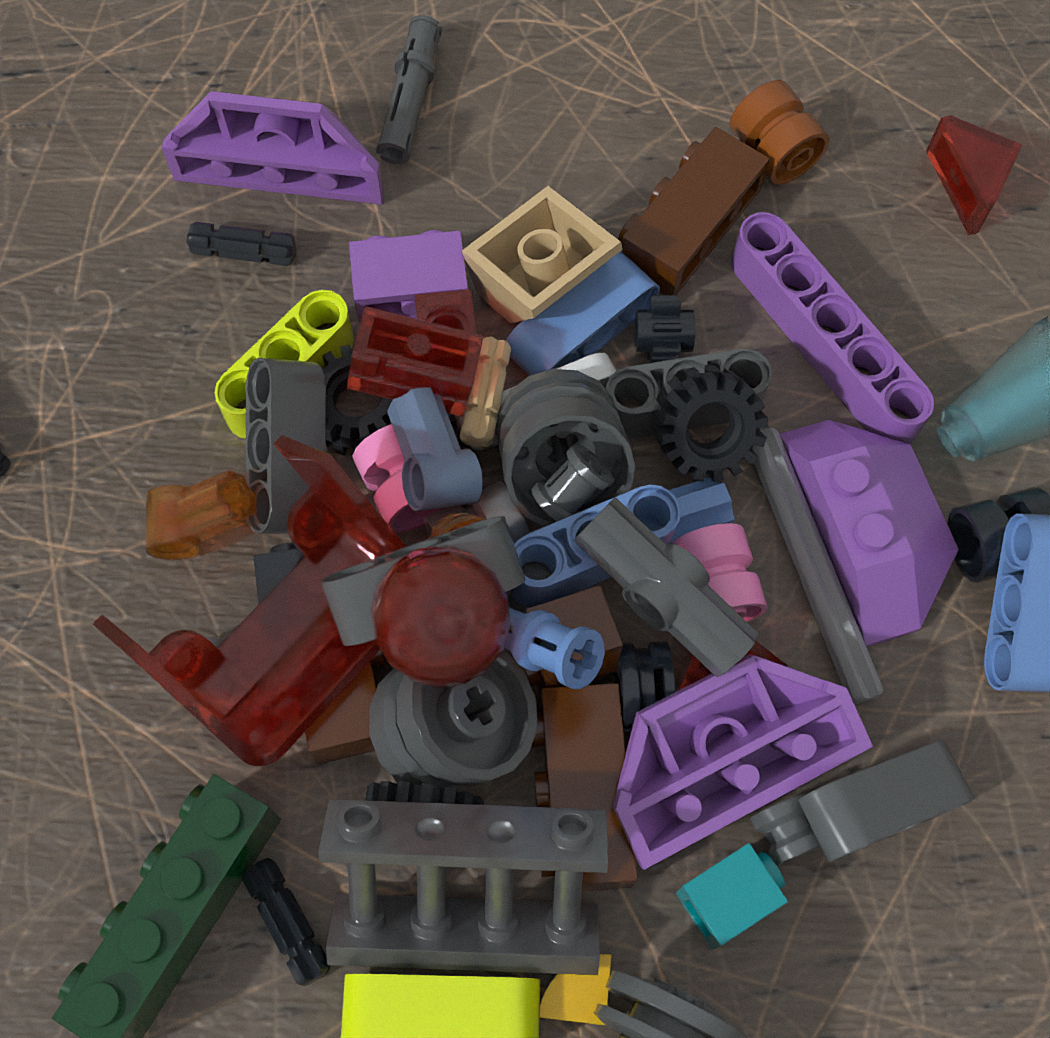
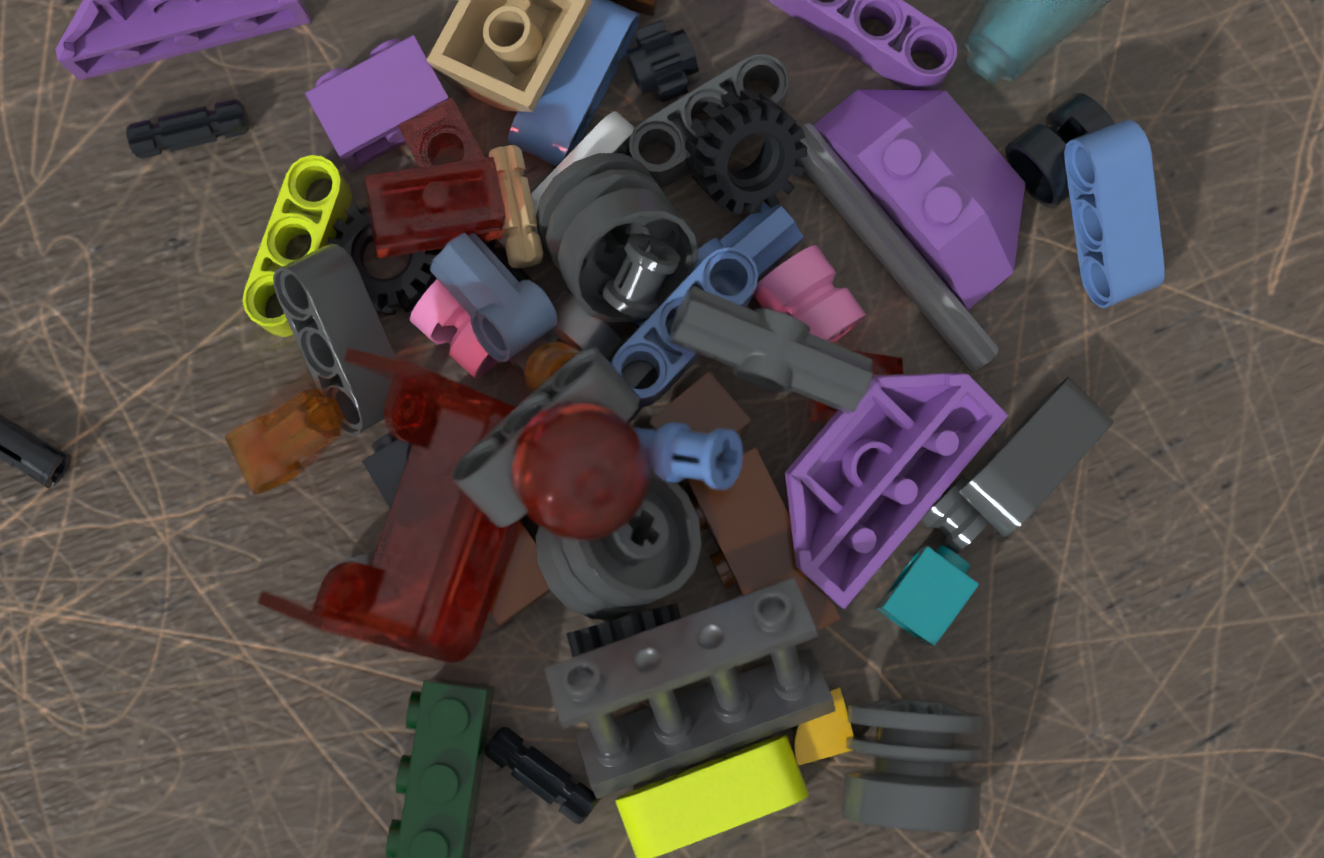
camera: 20 degrees left, 15 degrees up
(637, 681) = (771, 435): black wheel -> none

